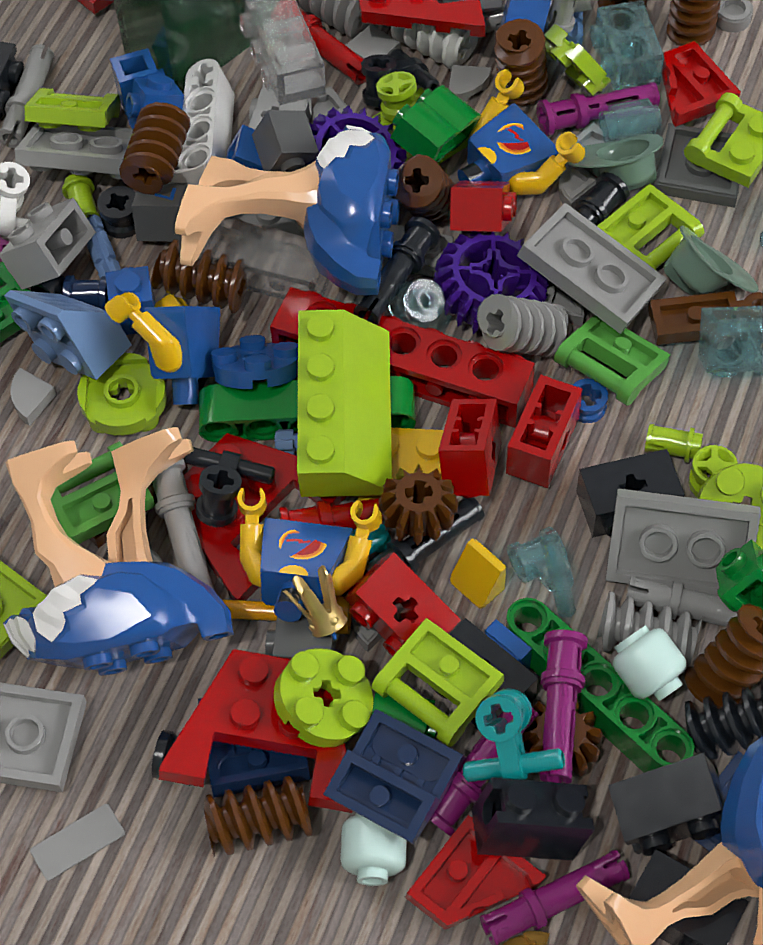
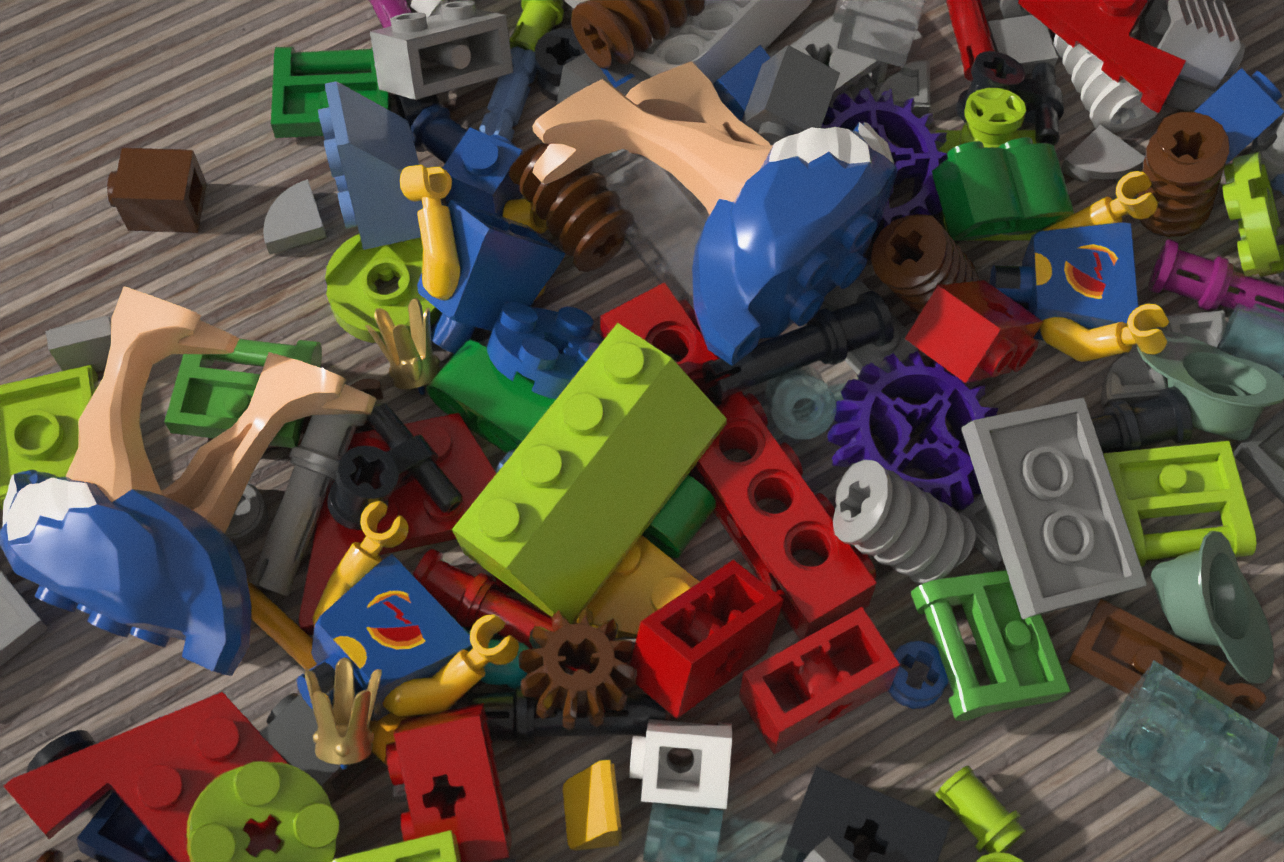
camera: 35 degrees right, 5 degrees up
(175, 417) = (409, 355): none -> pearl gold piece
(523, 511) = (697, 784): none -> white brick

